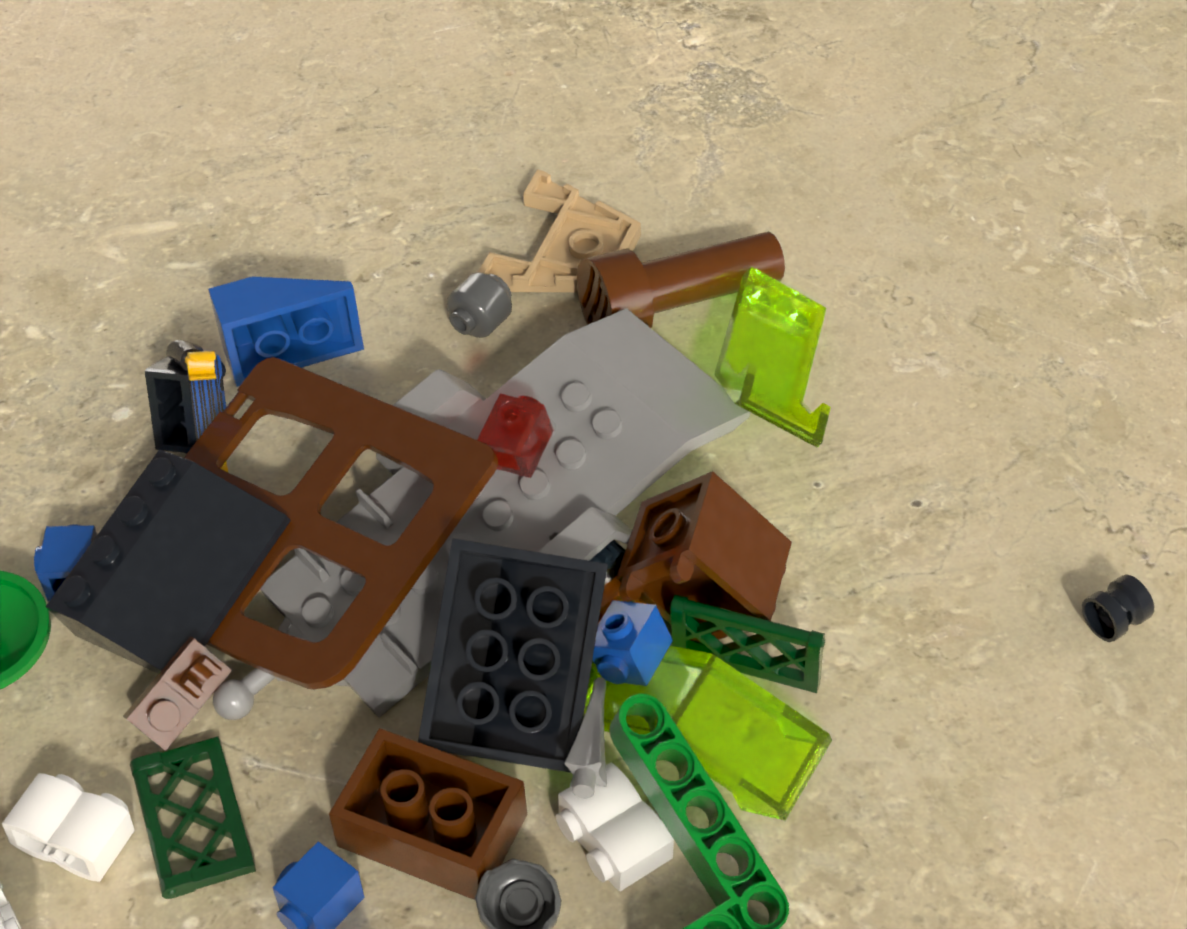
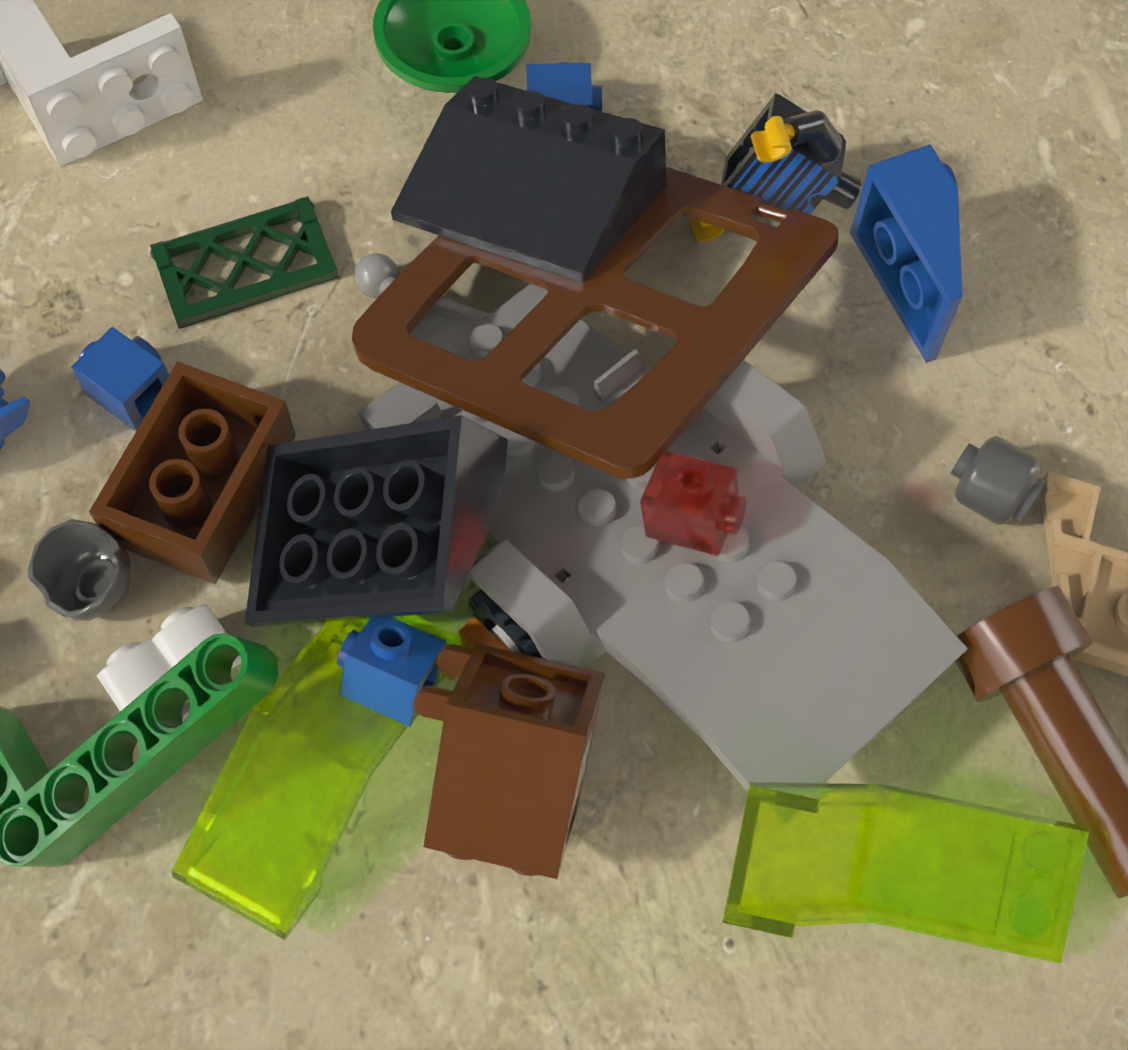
camera: 85 degrees right, 15 degrees up
(69, 826) = (226, 151): white brick -> none
(177, 693) = (373, 217): plate -> none
(587, 754) = (257, 627): light grey piece -> none
(760, 663) = (406, 843): dark green window -> none

